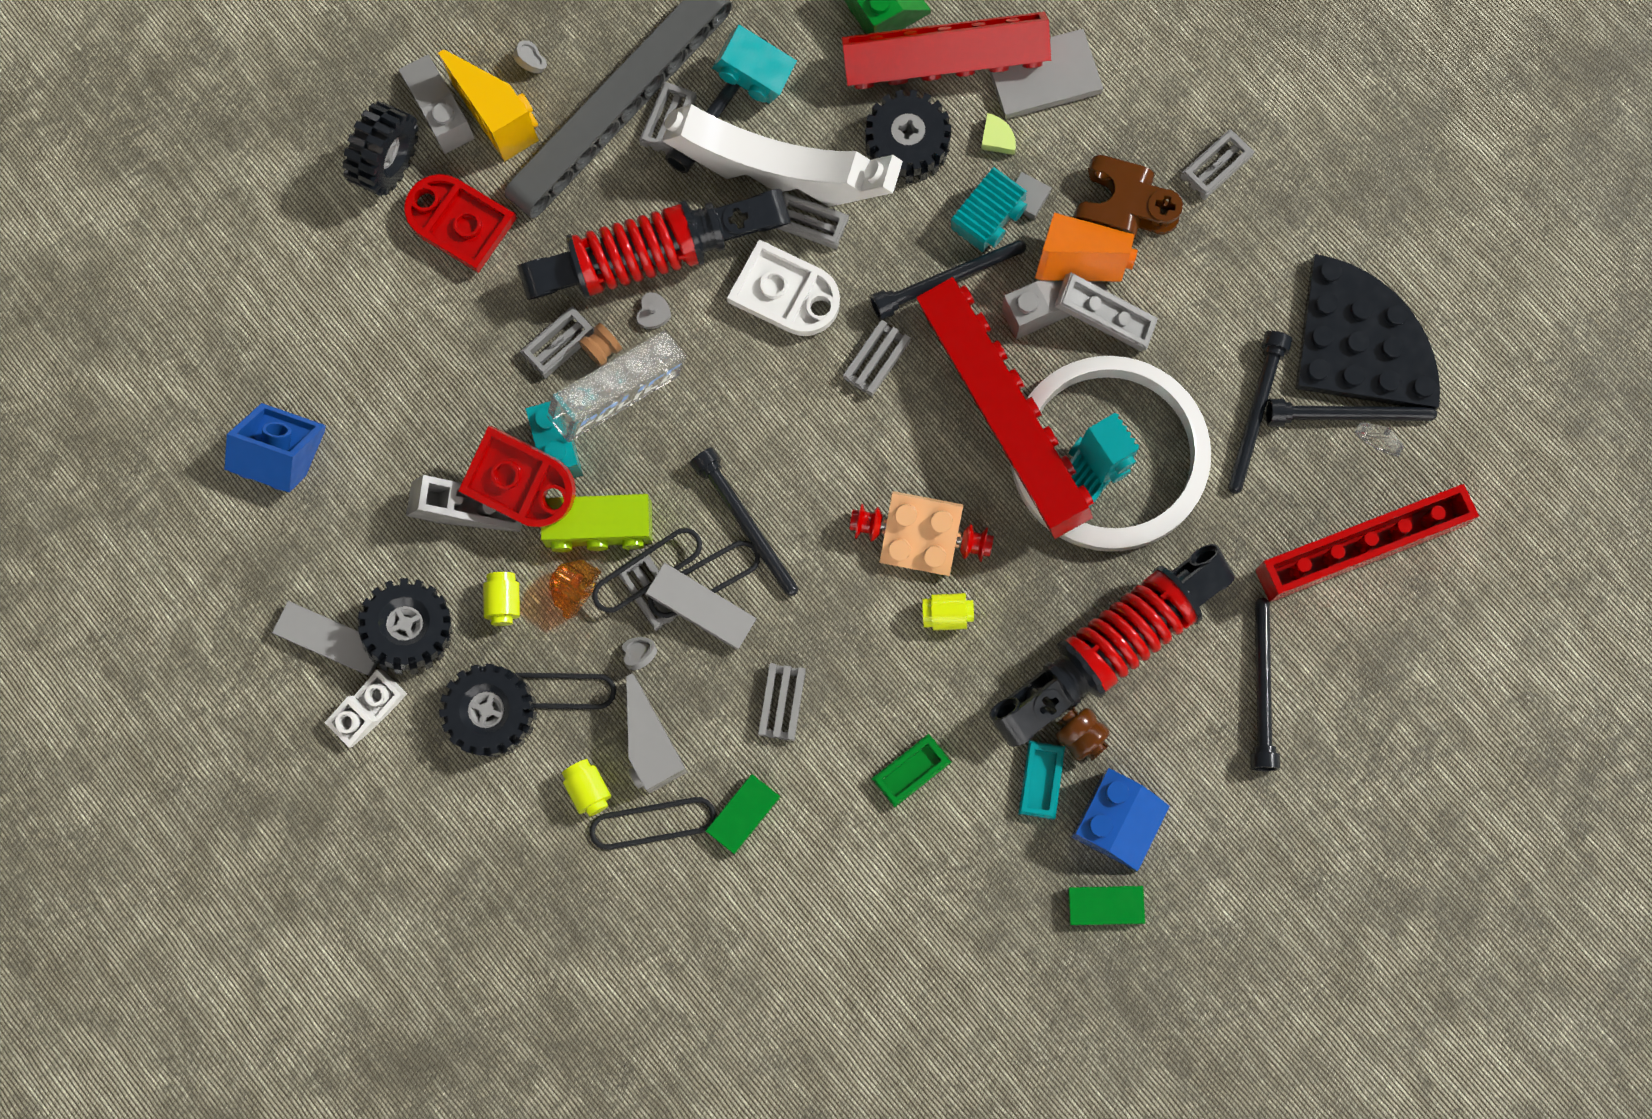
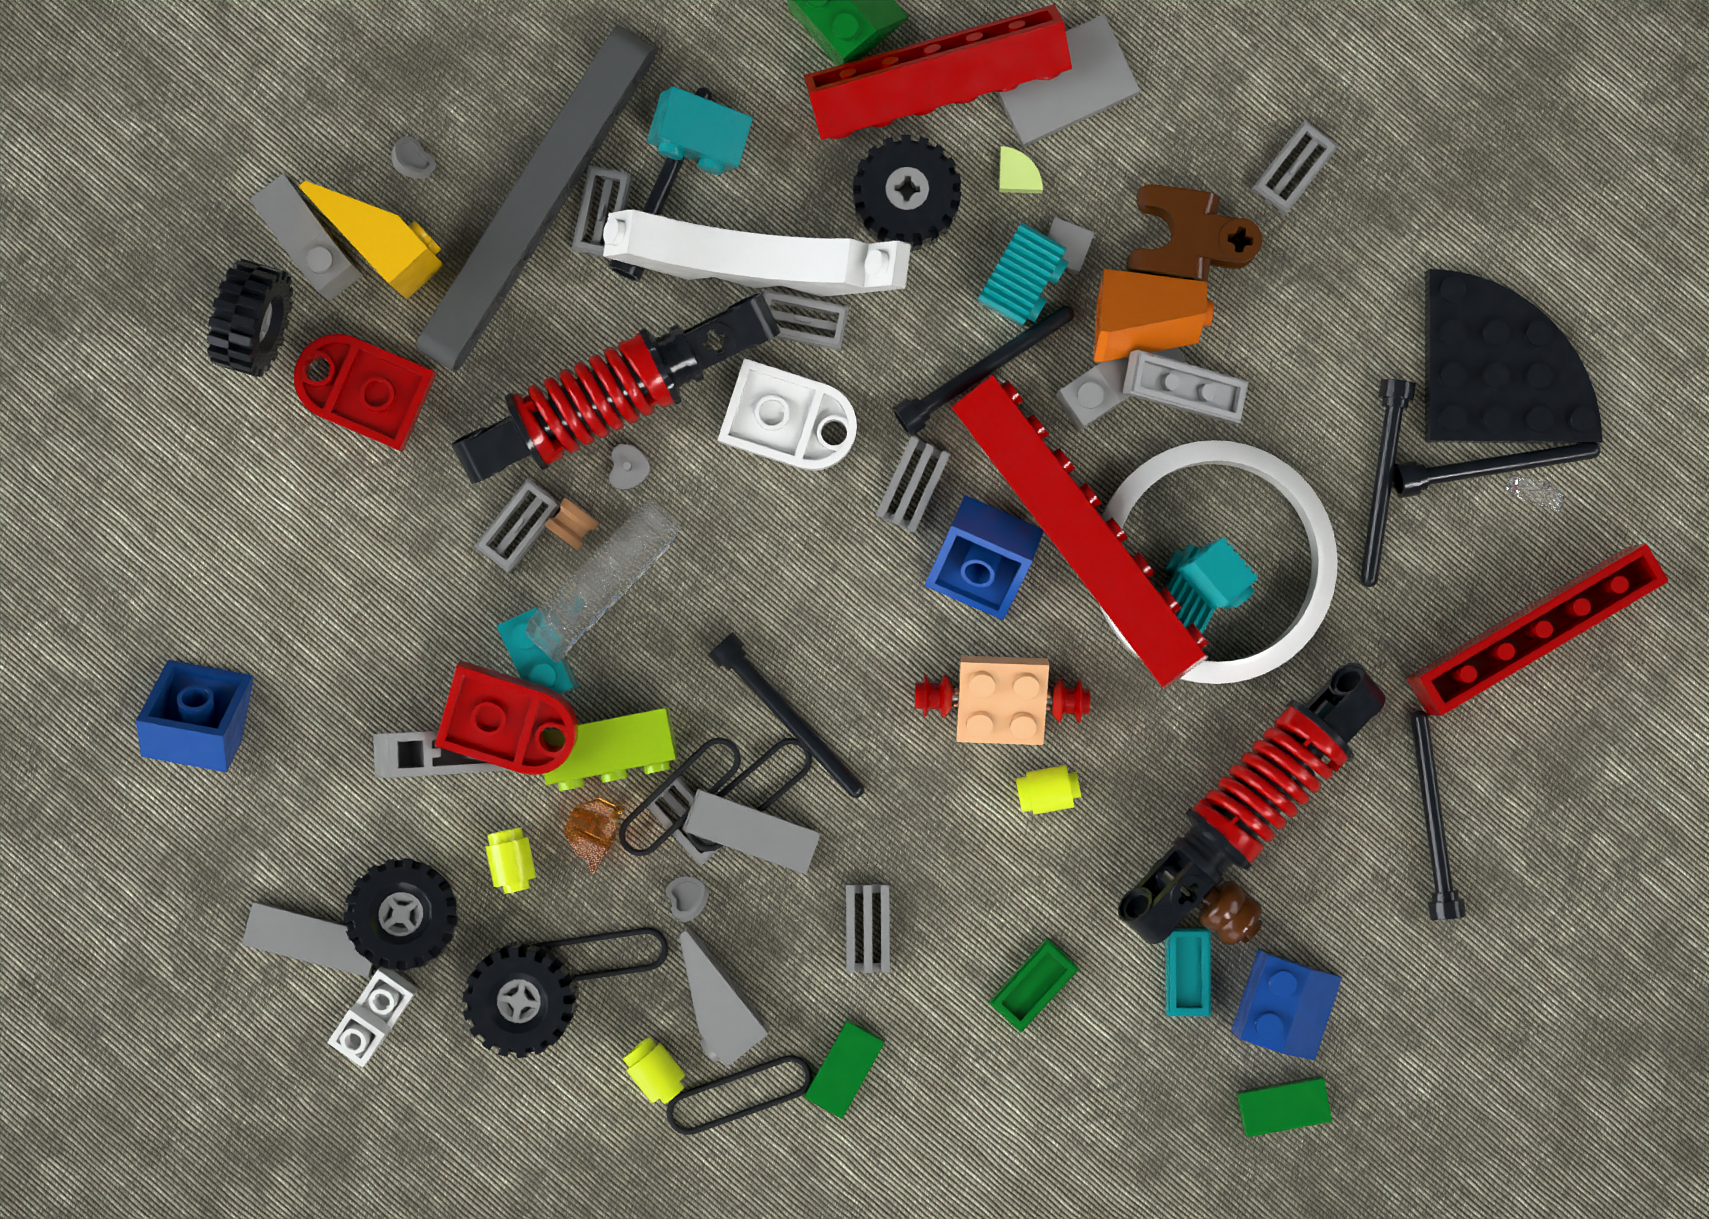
camera: 15 degrees left, 10 degrees up
(924, 420) = (984, 557): none -> blue slope

